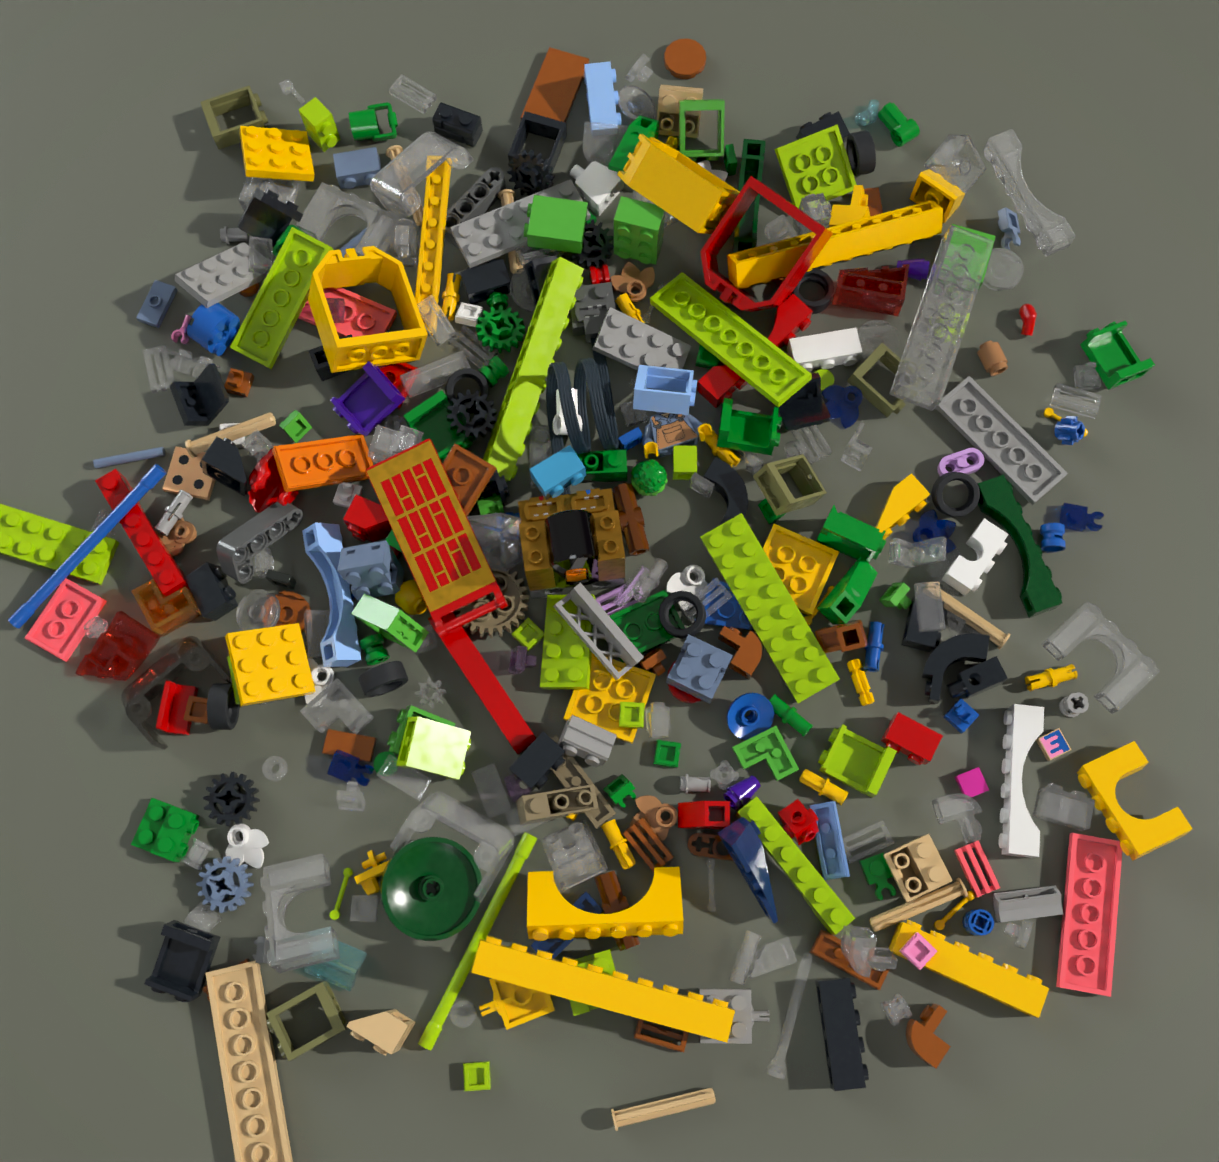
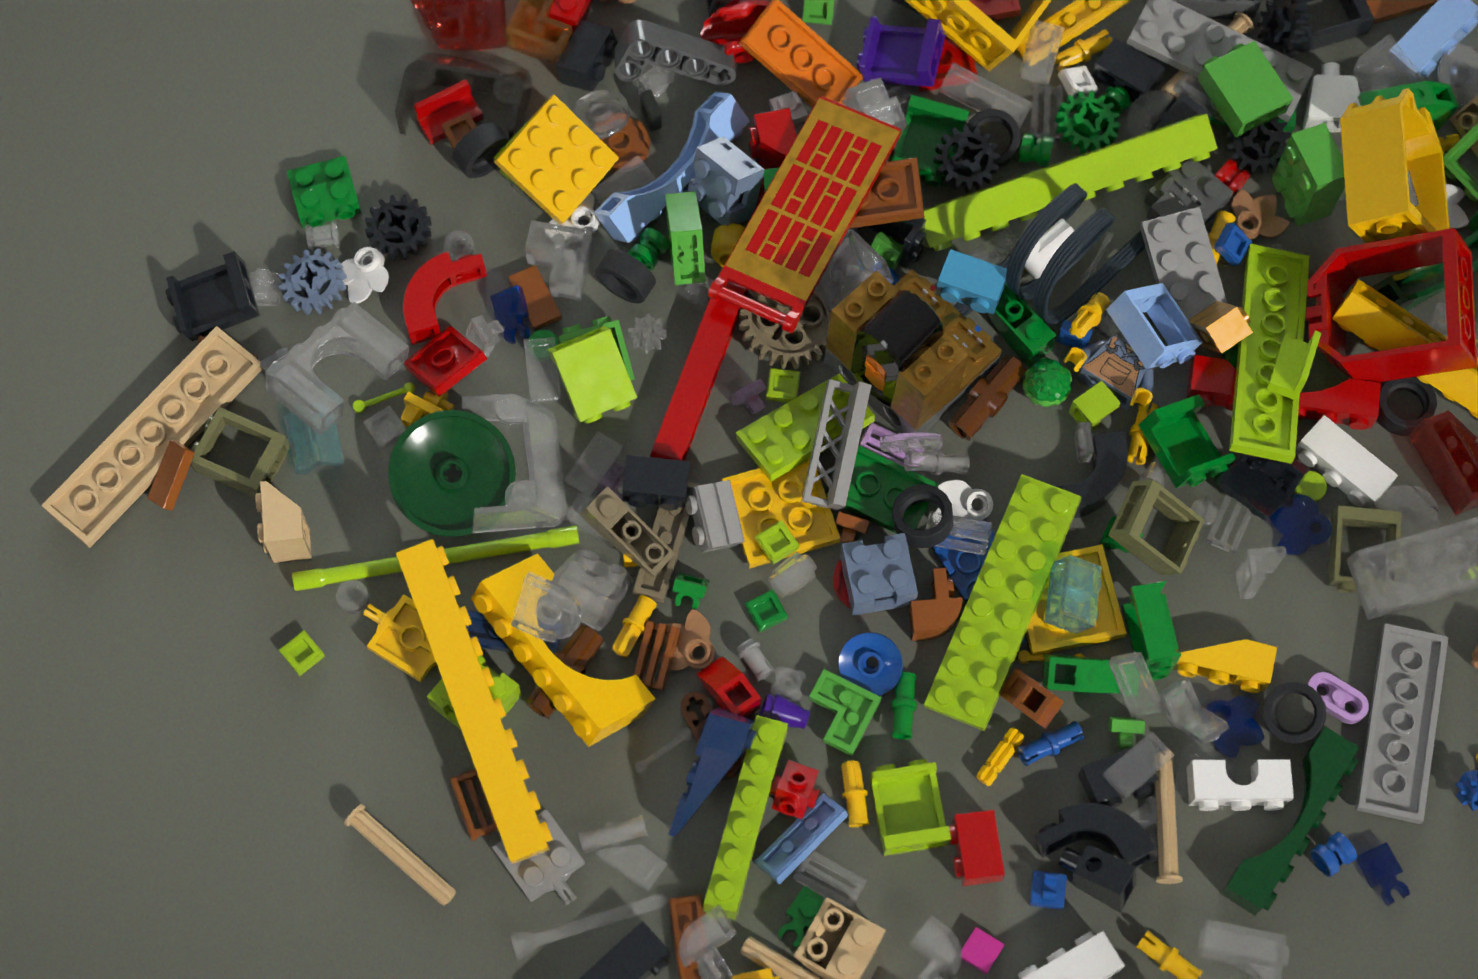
camera: 50 degrees right, 5 degrees down
(288, 808) = (429, 285): none -> red arch
(288, 1081) = (171, 475): none -> dark orange tile
(349, 836) = (445, 361): none -> red tile
(575, 896) = (546, 609): none -> clear tile
(627, 421) = (1089, 315): none -> yellow axle
(643, 307) = (1232, 244): none -> blue tile
(695, 352) = (1221, 326): none -> brick
(753, 330) = (1292, 366): none -> lime panel
(798, 564) = (1073, 594): none -> clear light blue brick
(877, 570) = (1136, 684): none -> clear tile

